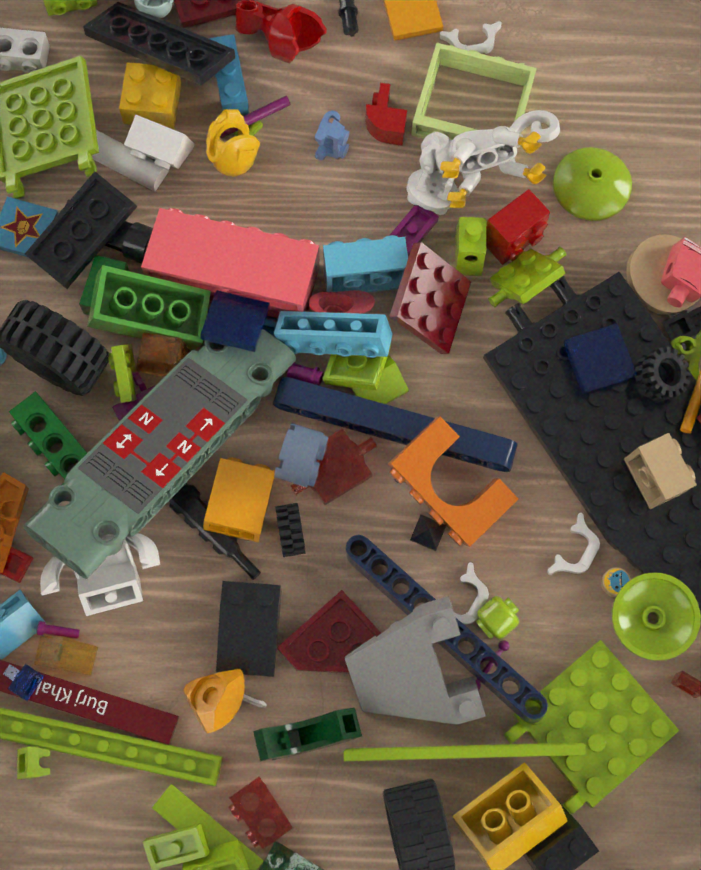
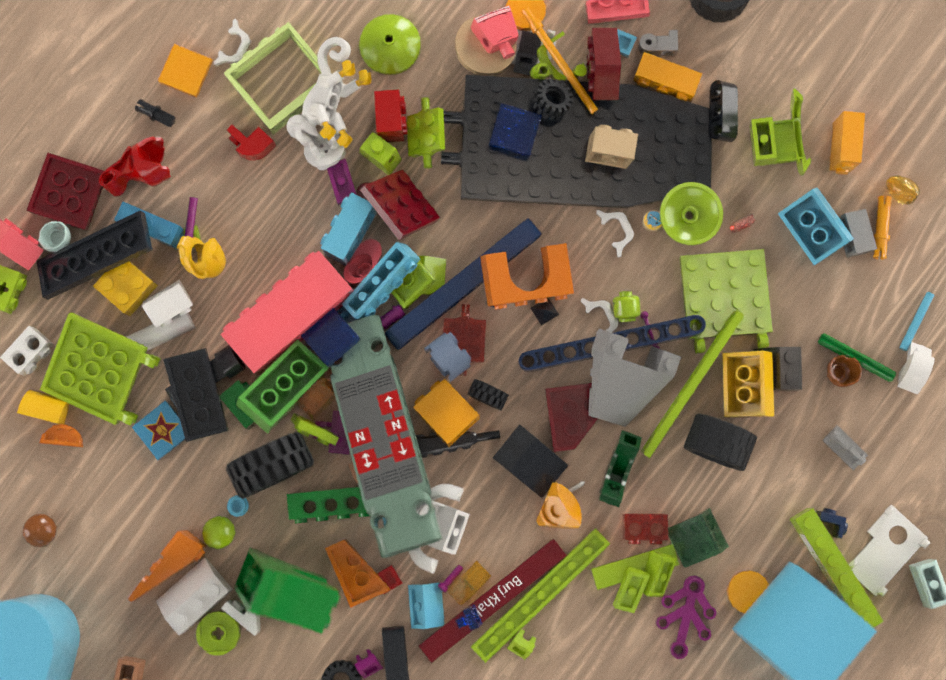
camera: 50 degrees left, 10 degrees up
(331, 137) = (242, 188): medium blue piece -> none

